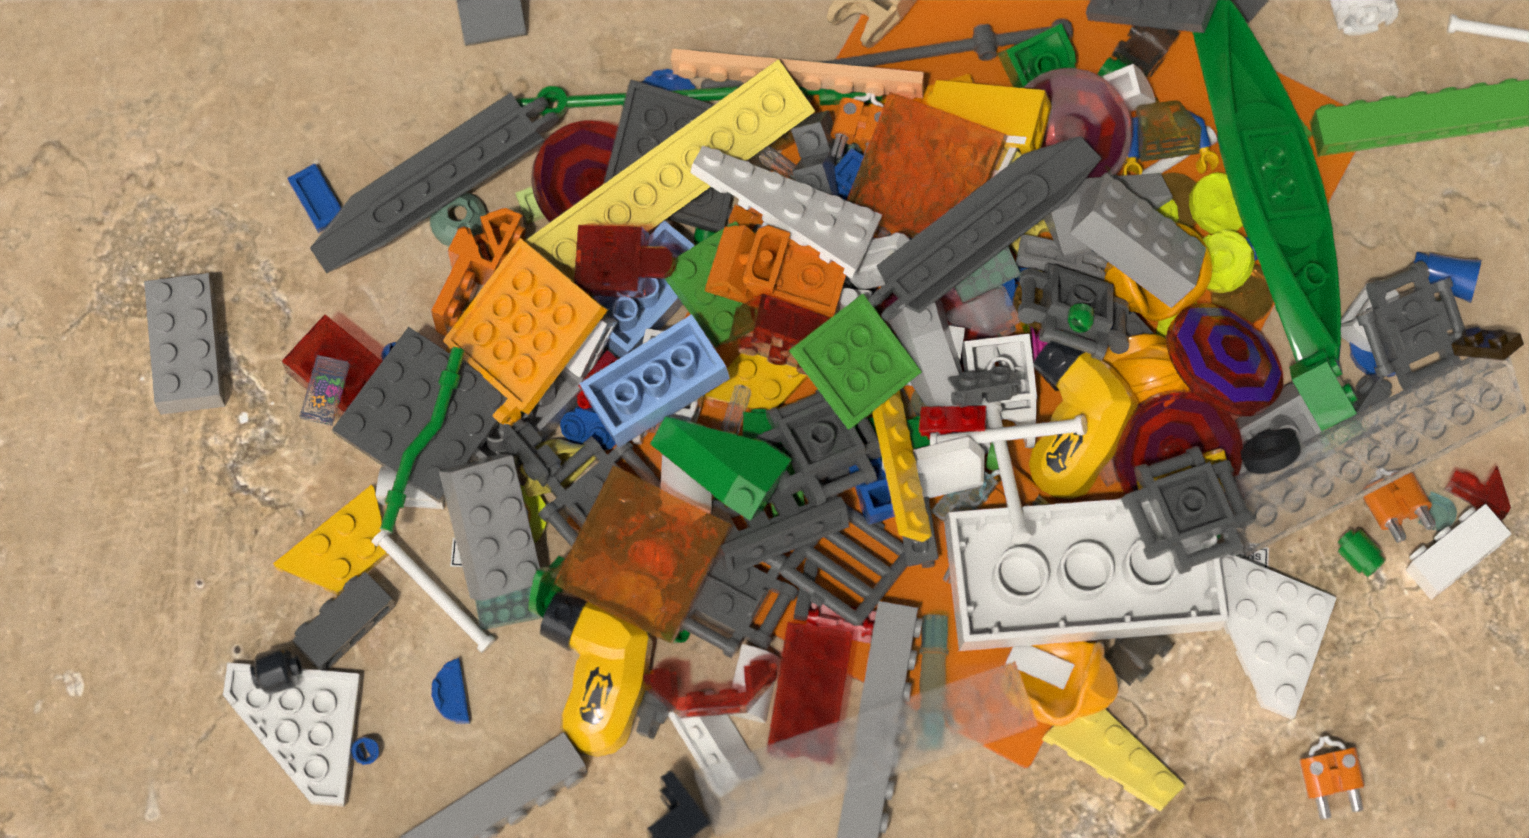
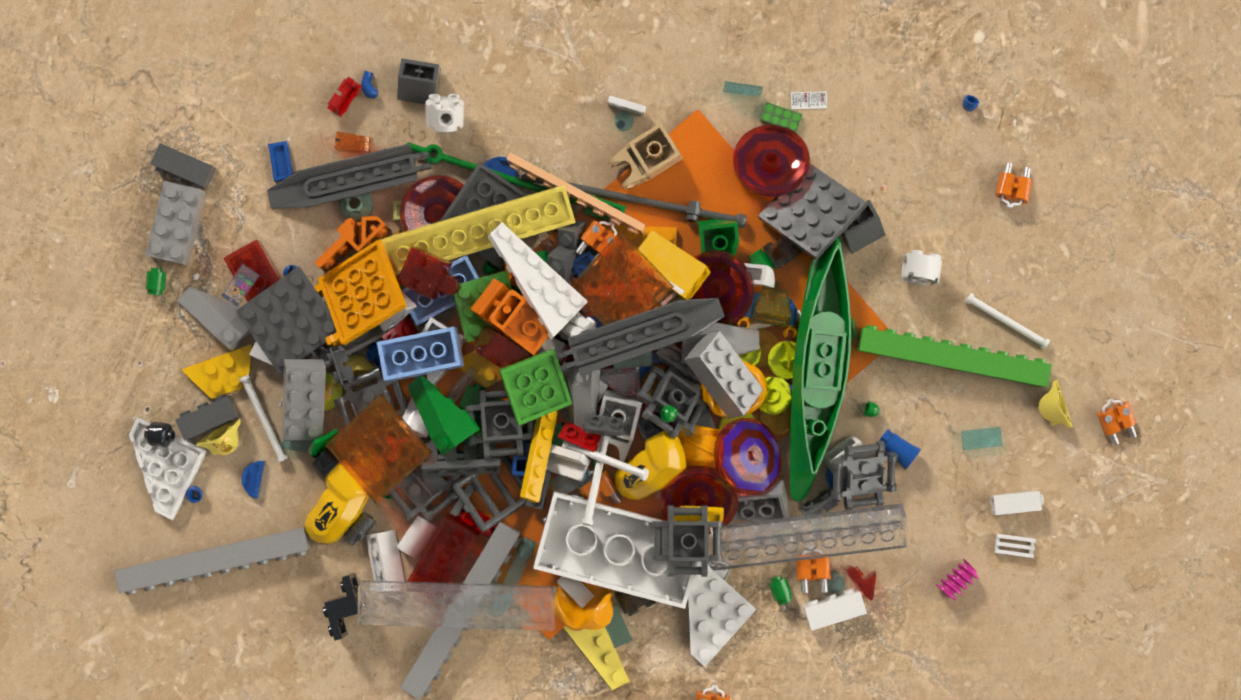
camera: 25 degrees right, 15 degrees up
(163, 254) = (183, 167): none -> dark grey brick
(182, 444) = (155, 281): none -> green brick
(309, 464) = (216, 316): none -> light grey wedge
(378, 79) = (349, 90): none -> red hinge
(381, 647) = (222, 440): none -> light yellow hat
(396, 498) = (307, 310): green bar -> none
(411, 43) = (367, 87): none -> blue arm
(420, 129) = (353, 143): none -> clear orange leg
(562, 34) = (444, 112): none -> white brick
(664, 687) = (366, 525): clear red slope -> none
(1133, 712) = (617, 629): none -> sand green tile
(1284, 452) = (751, 511): black tyre -> none
(1323, 390) = (796, 494): brick -> none
(1379, 234) = (871, 409): none -> green hinge
(1487, 344) = (899, 503): dark brown plate -> none

